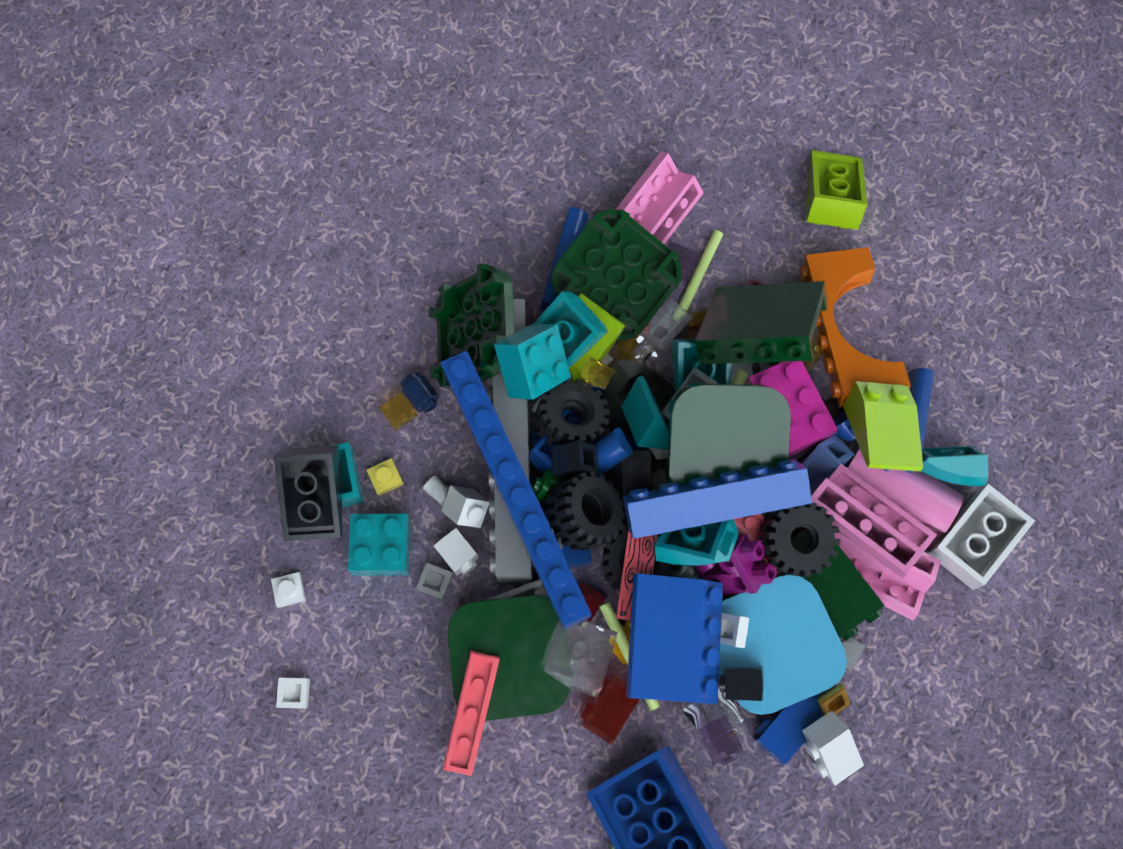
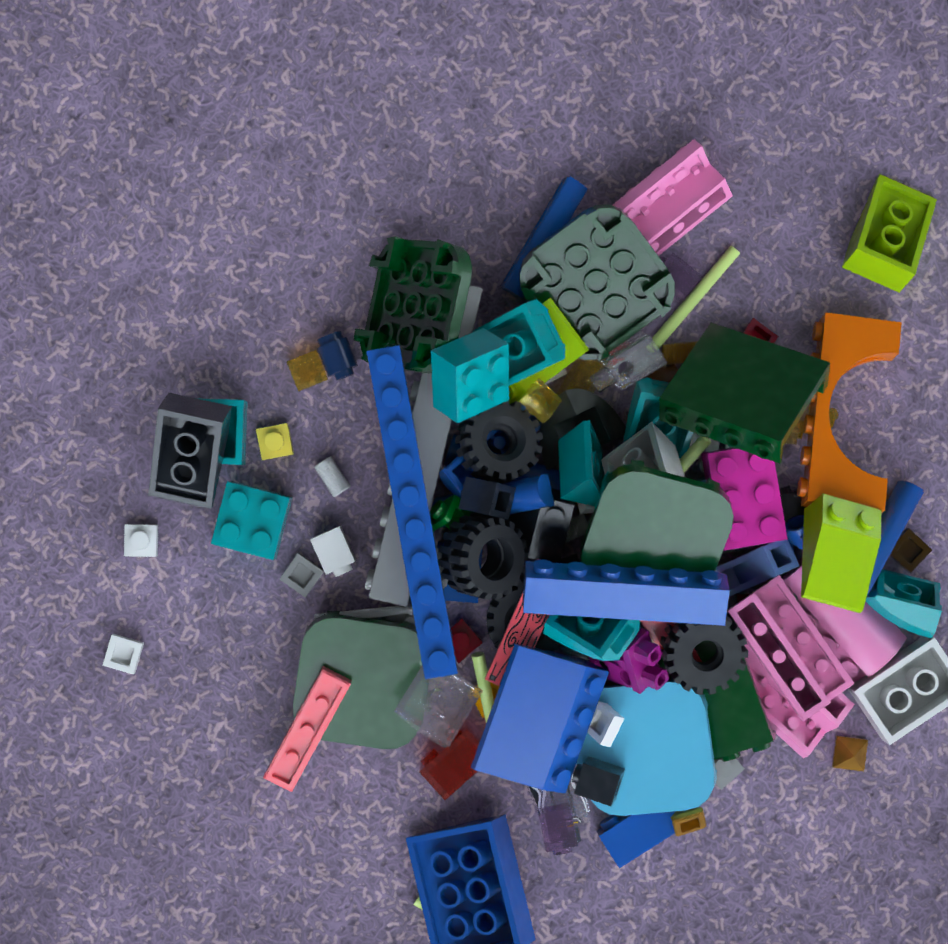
camera: 15 degrees right, 15 degrees up
(465, 506) = (355, 504): white brick -> none
(832, 748) = (672, 865): white brick -> none
(939, 425) = (909, 550): none -> dark brown plate
(950, 610) = (850, 753): none -> pearl gold slope

